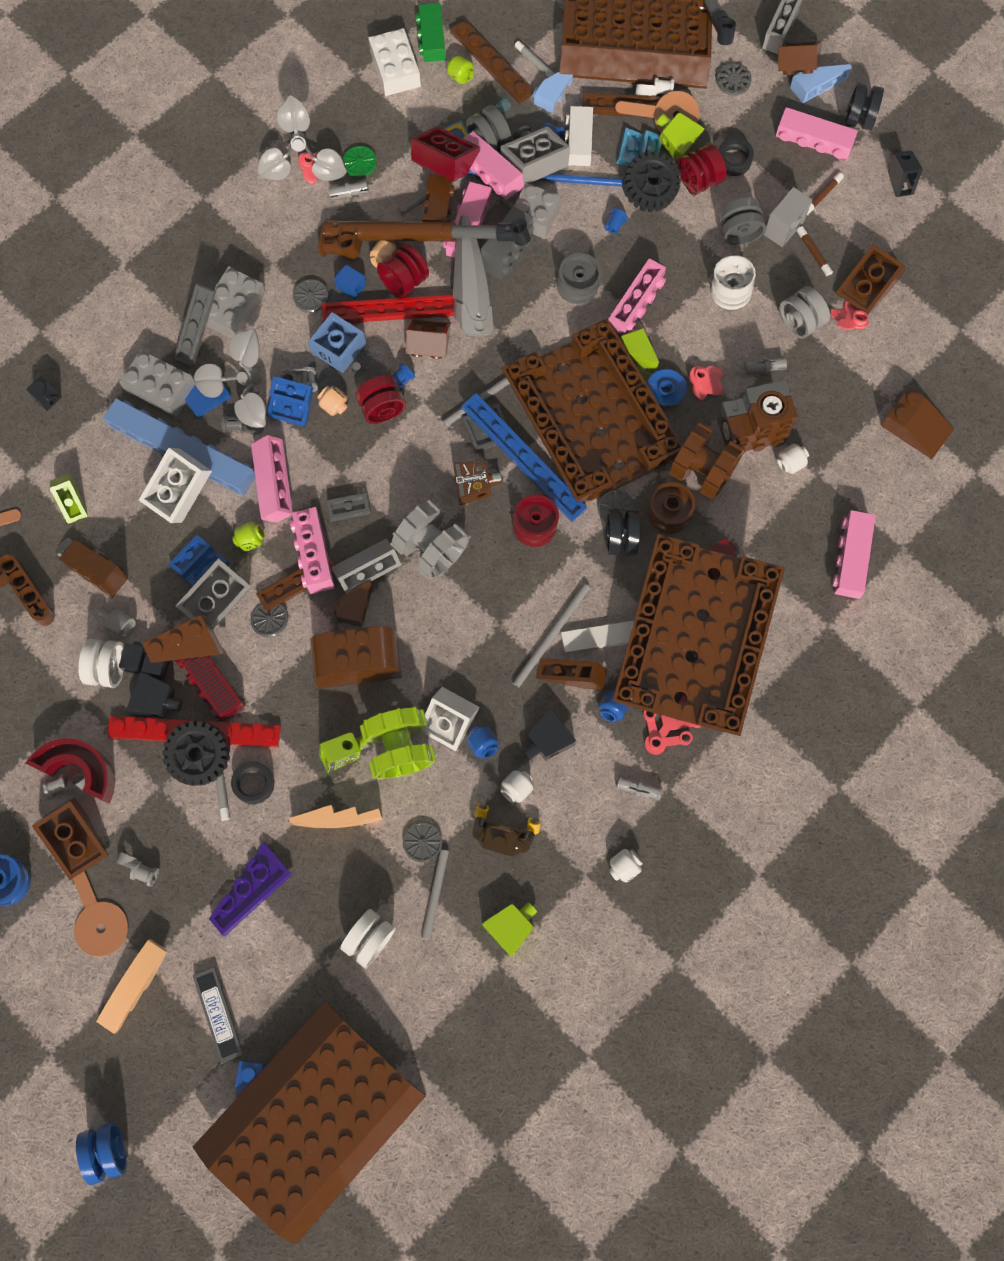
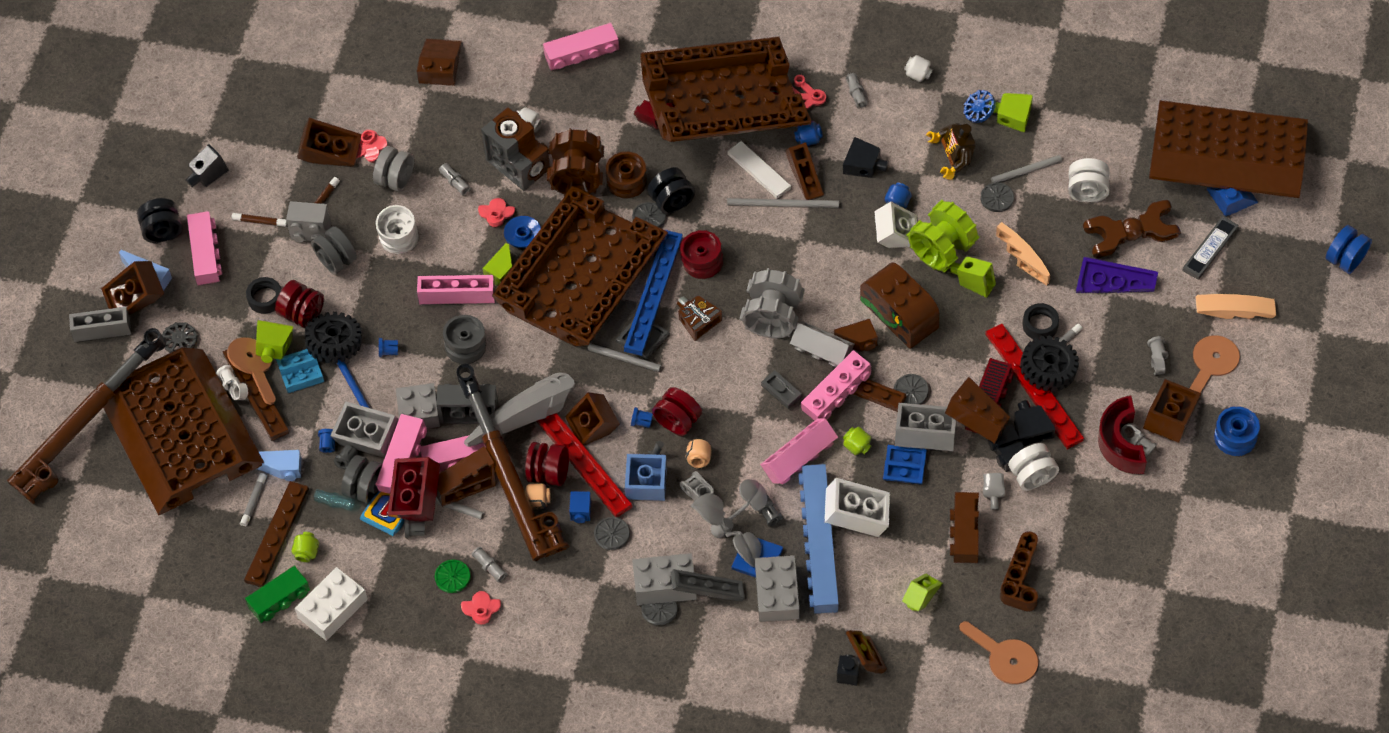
camera: 120 degrees left, 15 degrees down
(43, 411) = (866, 652): none -> reddish brown slope
(63, 546) = (964, 567): light grey piece -> none
(275, 166) = (470, 627): light grey plant -> none
(288, 946) = (1117, 232): none -> reddish brown piece
(290, 401) = (722, 479): blue slope -> none
(517, 786) = (913, 158): white head -> none
(537, 895) = (979, 106): none -> blue wheel
(579, 135) = (315, 417): white brick -> none

